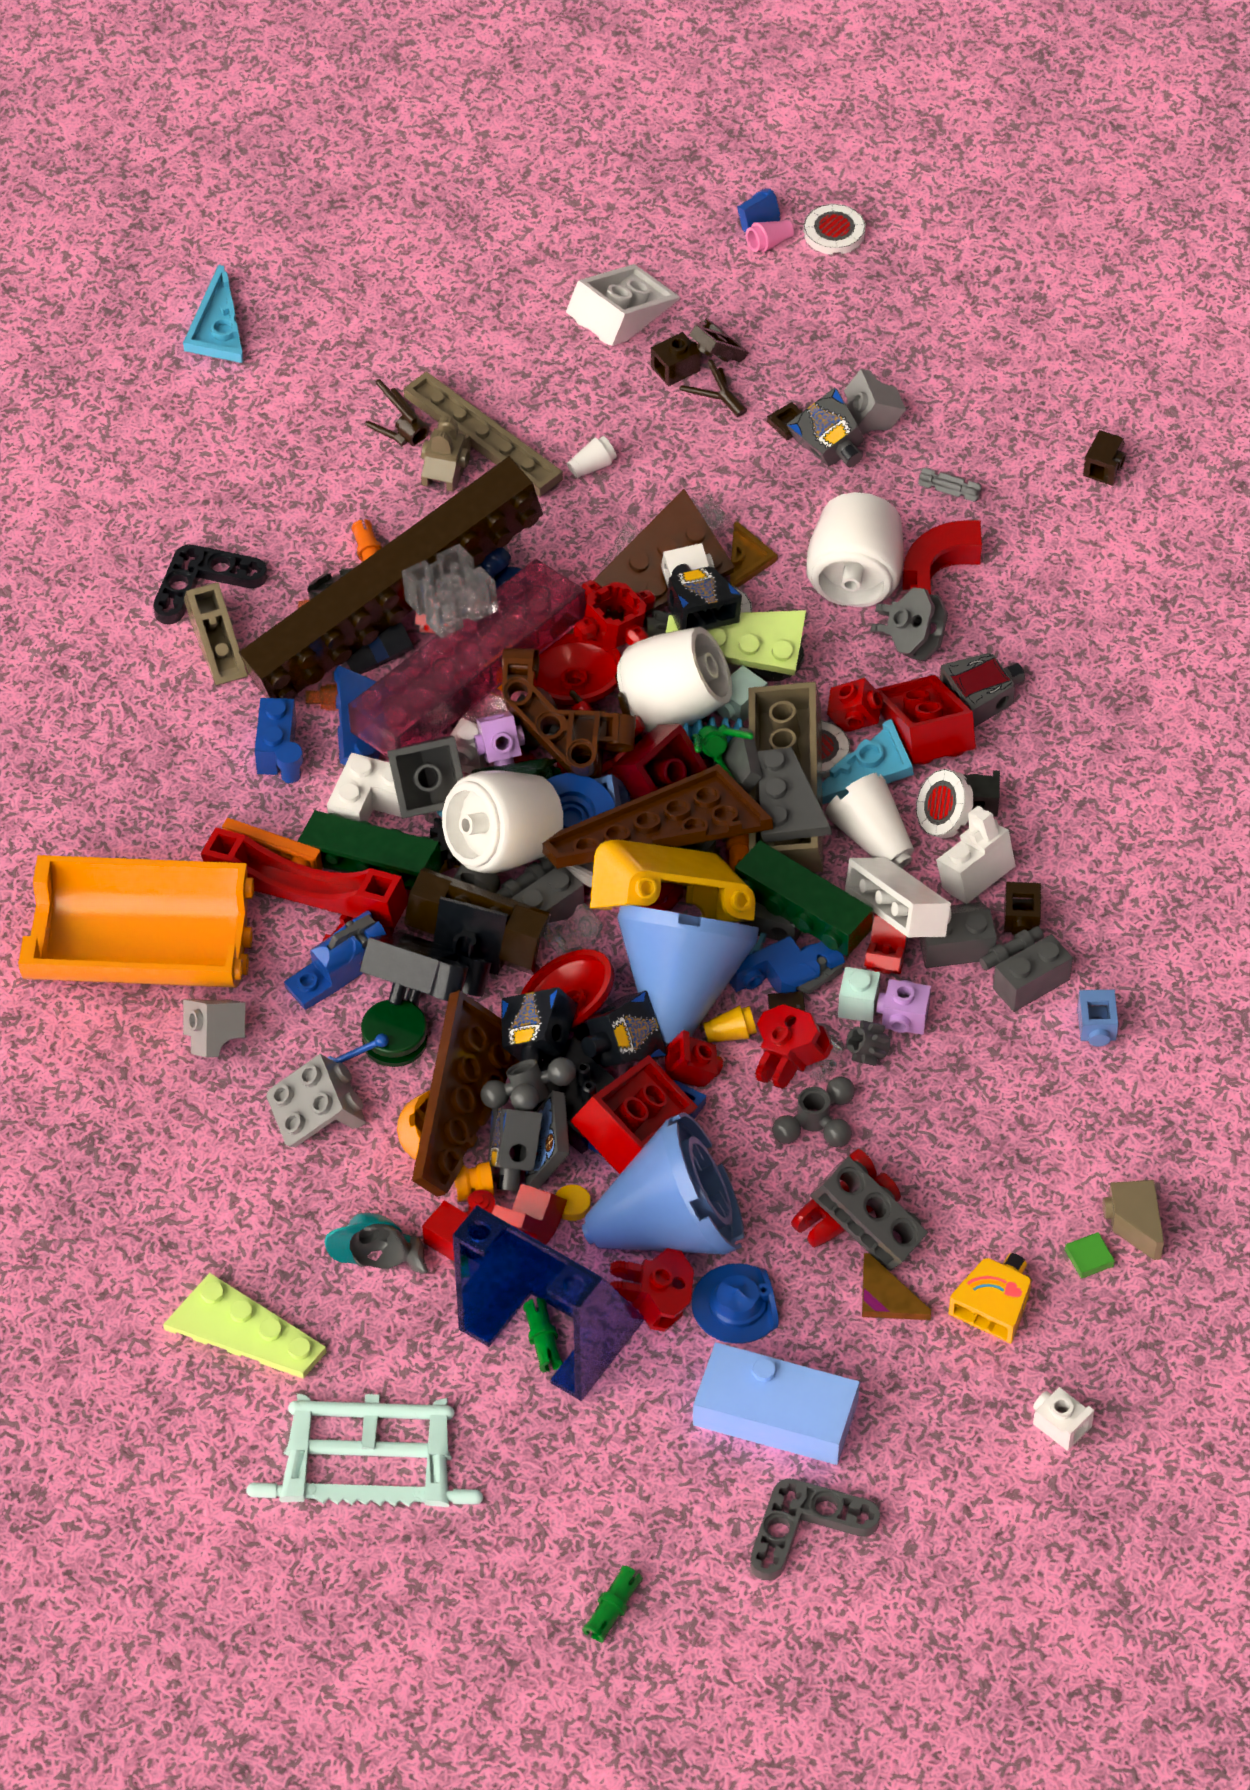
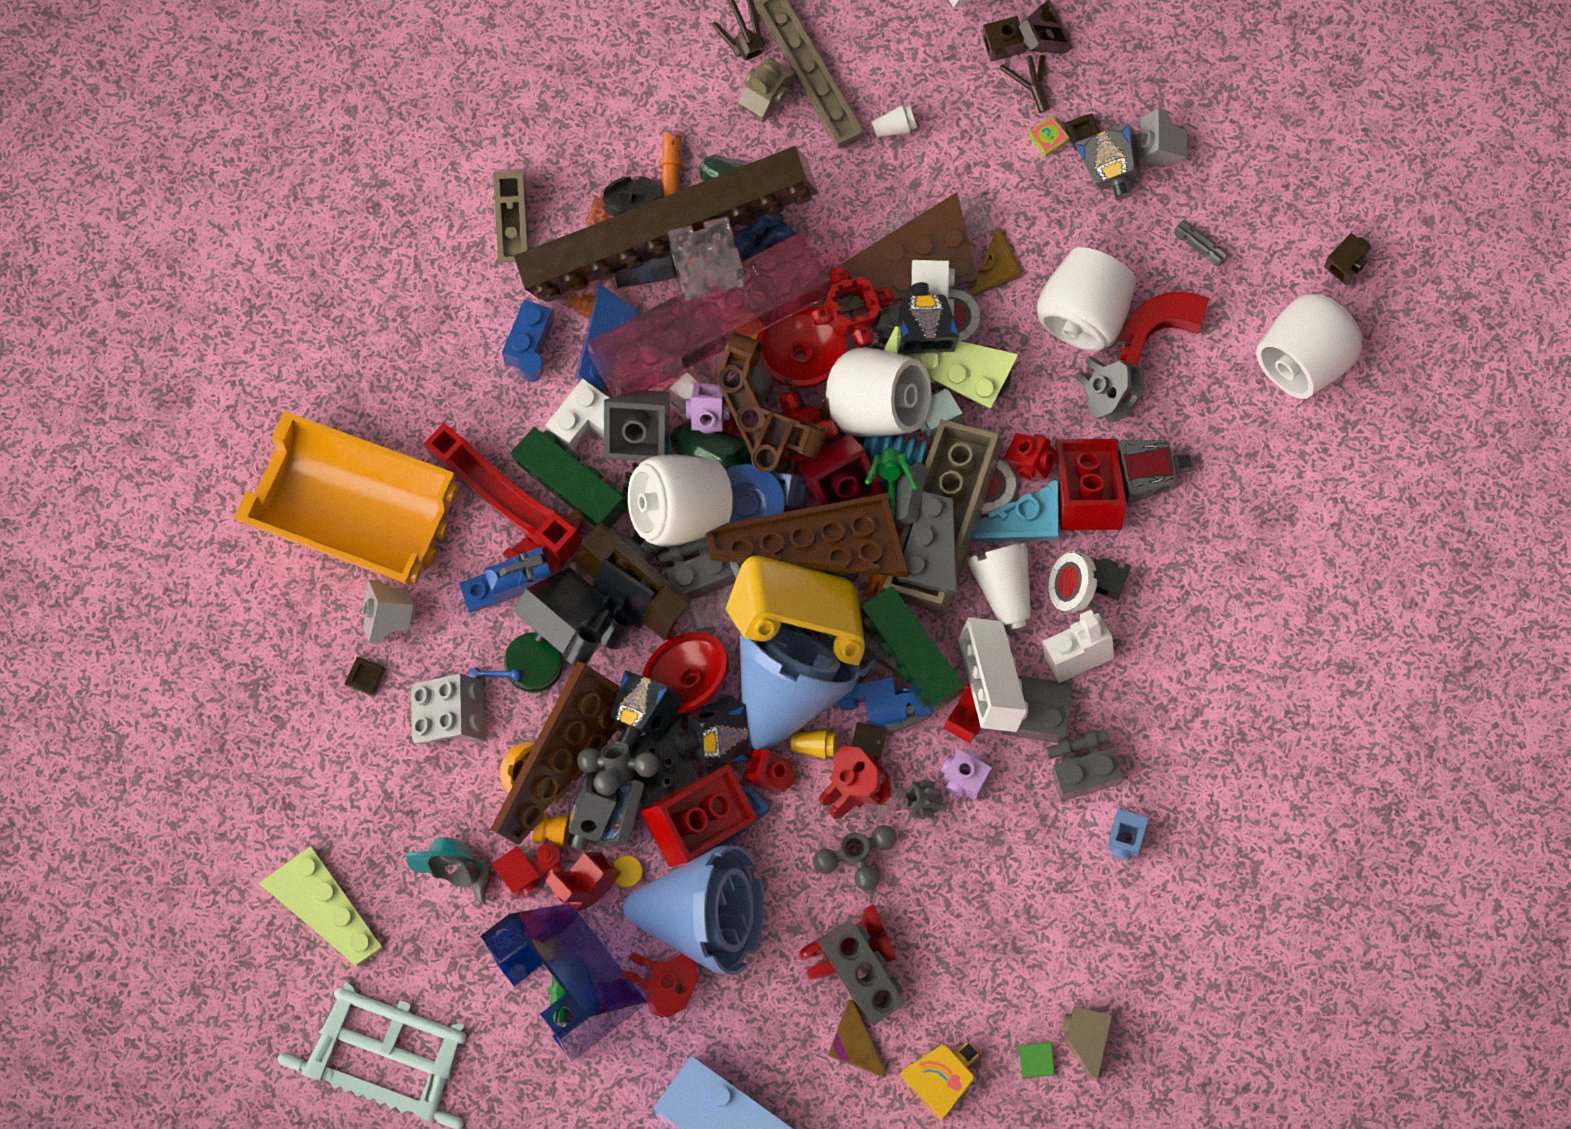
camera: 20 degrees right, 20 degrees up
(201, 568) = (521, 138): black beam -> none
(211, 1098) = (365, 676): none -> dark brown tile
(280, 845) = (490, 449): orange tile -> none
(735, 1303) = (727, 1010): blue hat -> none
(755, 432) = (1048, 136): none -> tile
(858, 994) = (931, 749): light aqua brick -> none
(1022, 913) = (1104, 696): dark brown brick -> none
(1099, 518) = (1309, 345): none -> white piece

